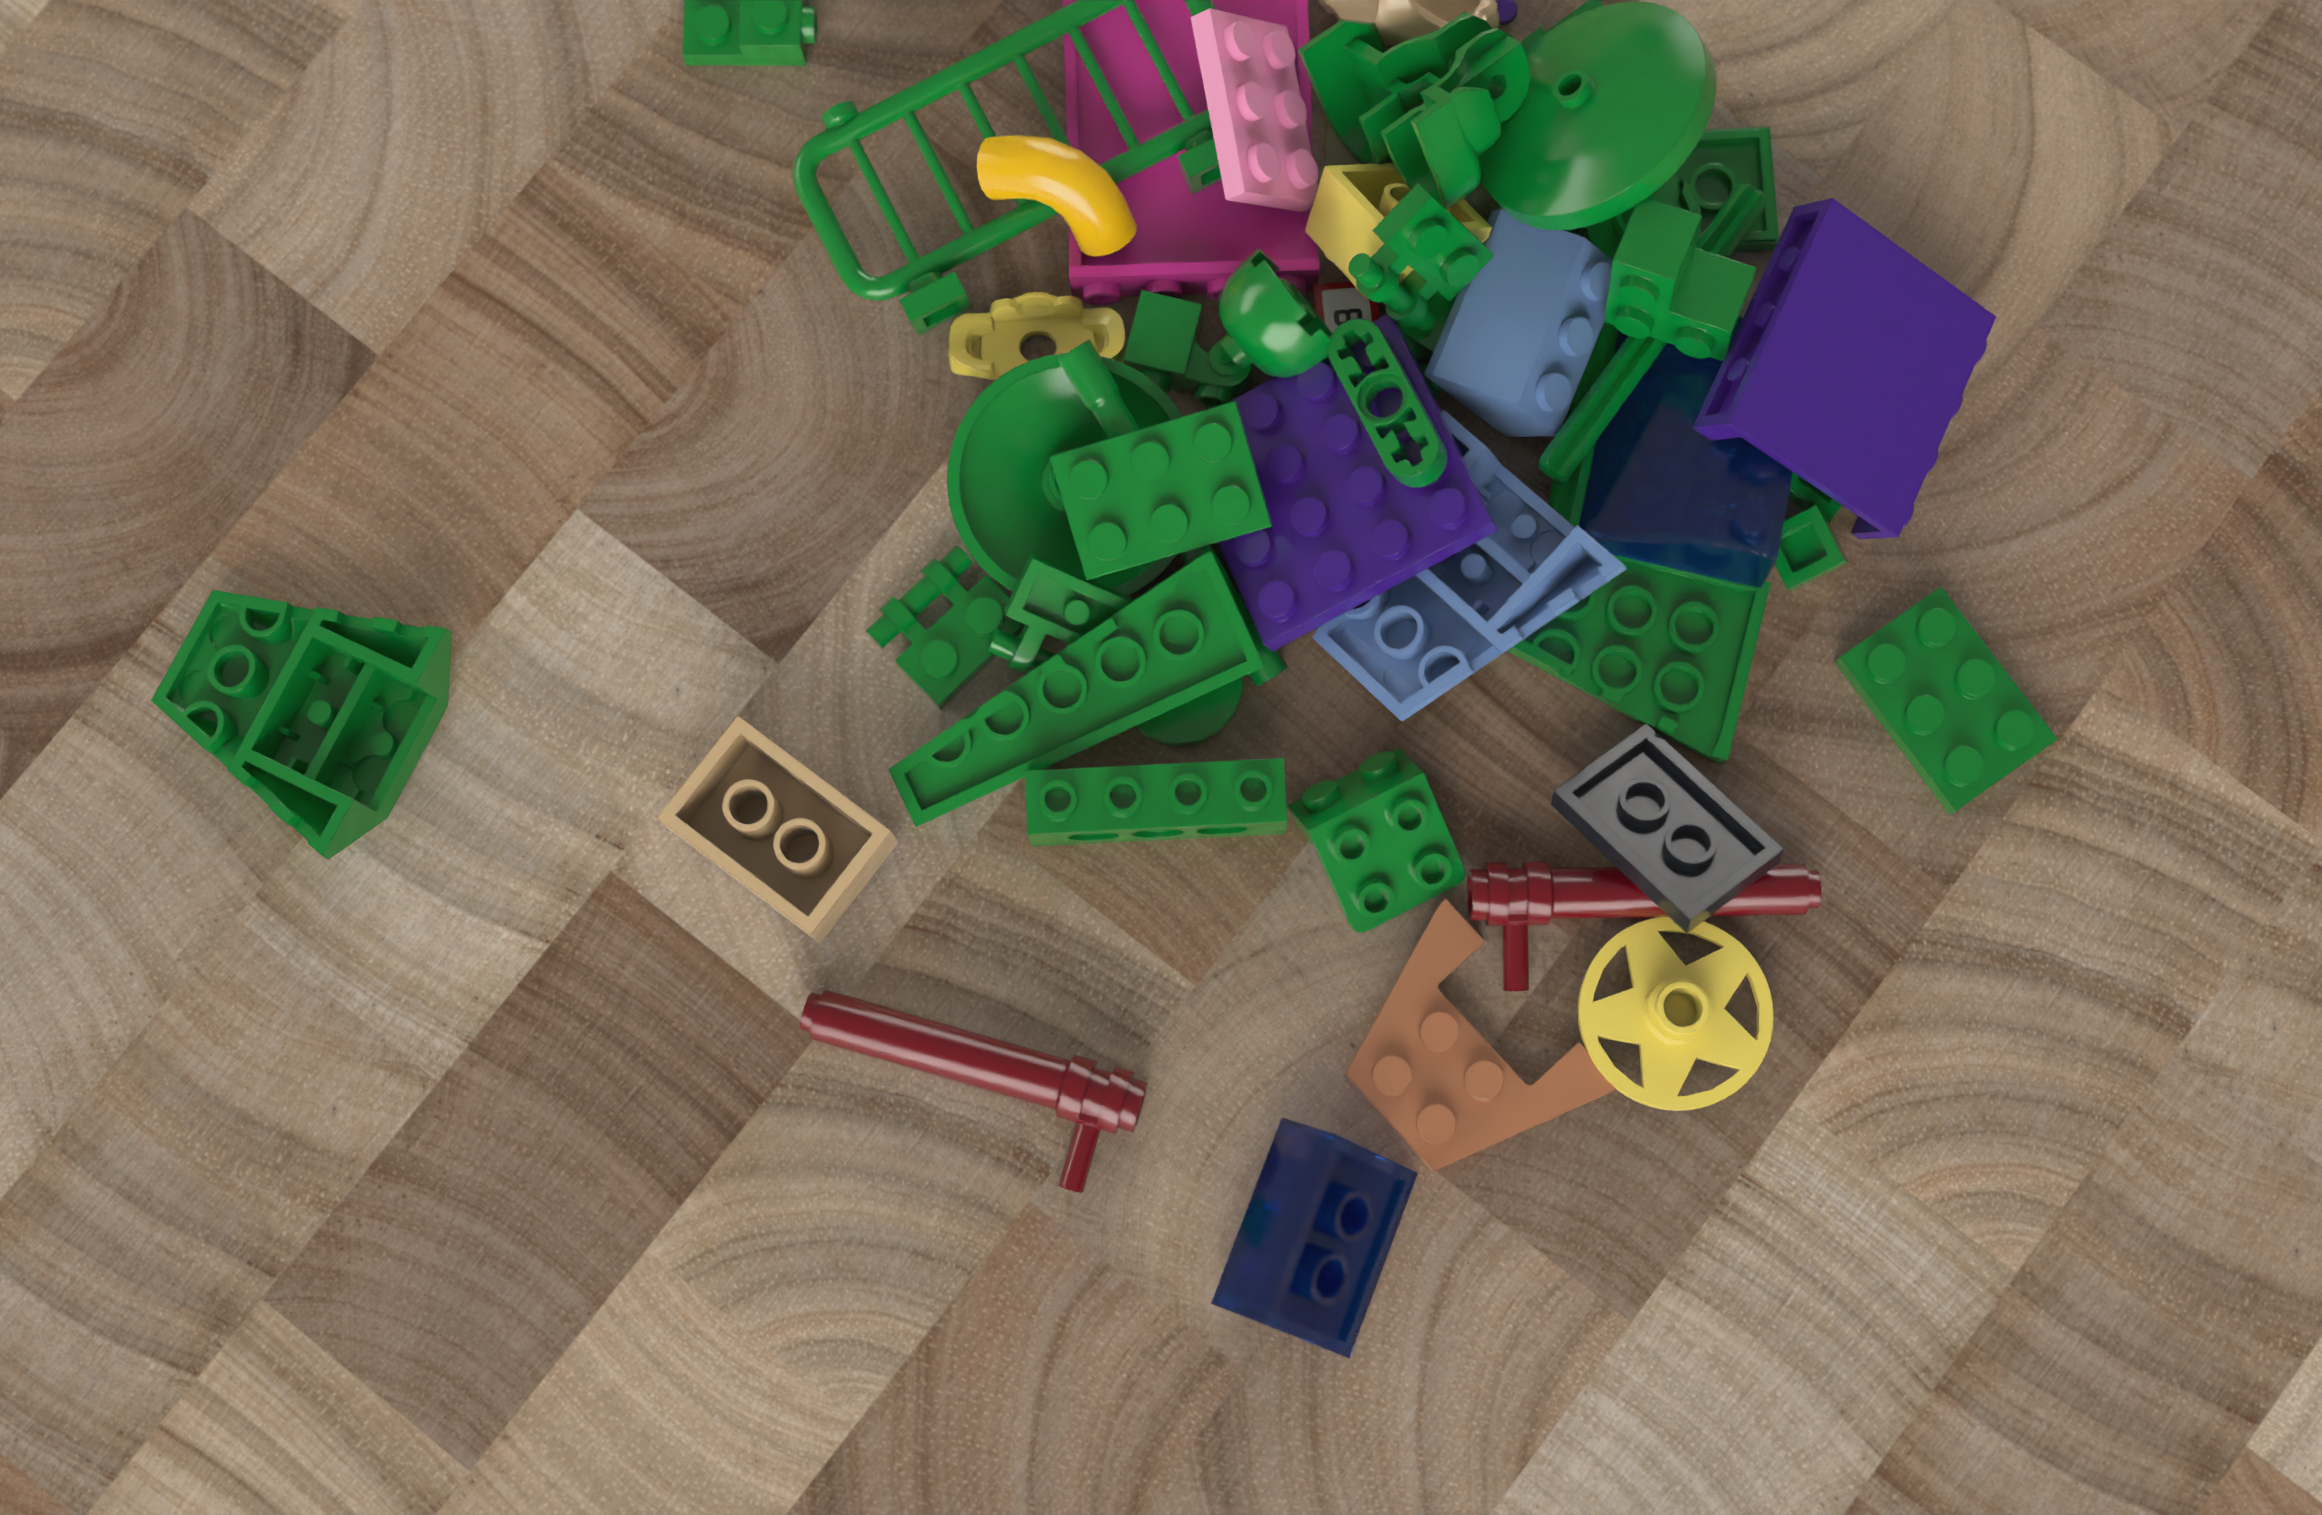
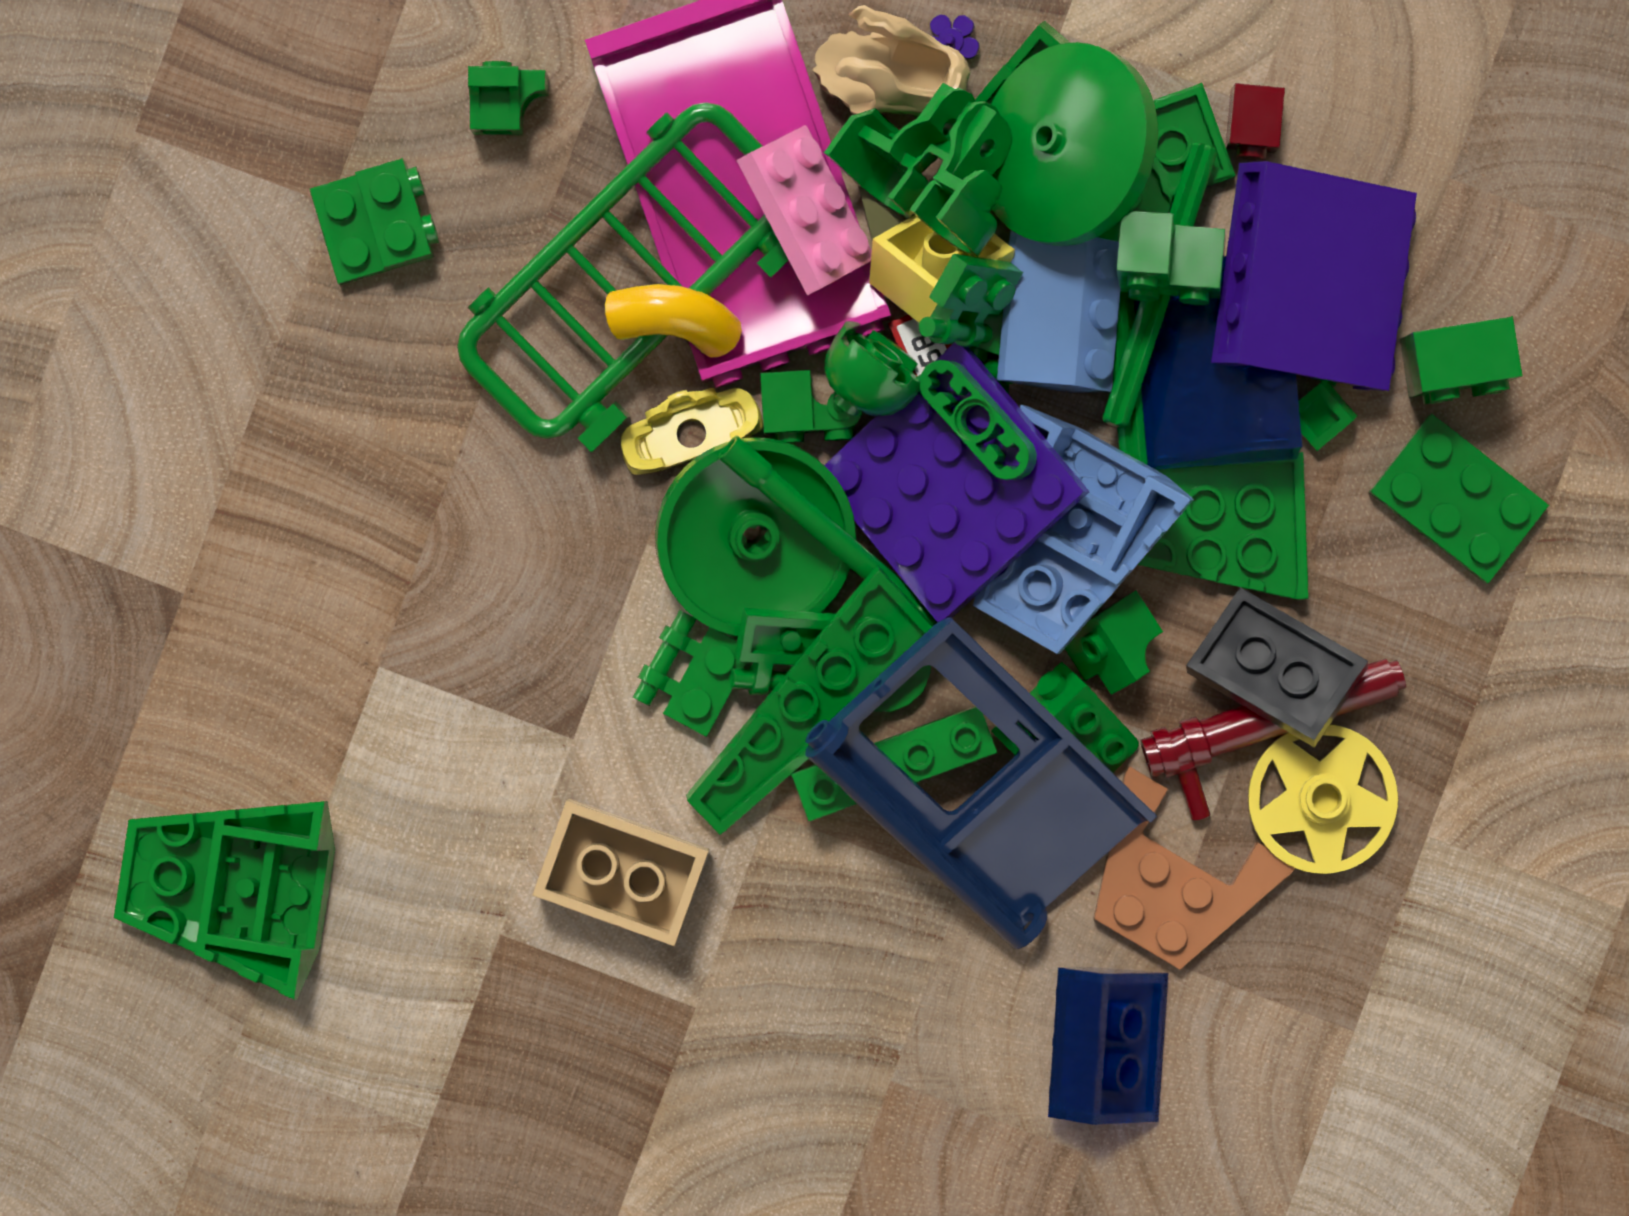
camera: 25 degrees left, 10 degrees up
(1071, 1087) = (897, 991): dark red cylinder -> none
(1161, 490) = (827, 534): green plate -> none
(1294, 928) = (1022, 830): none -> dark blue piece
(1471, 737) = (1115, 643): none -> green brick
(1823, 170) = (1254, 120): none -> dark red brick
(1999, 523) = (1459, 358): none -> green brick

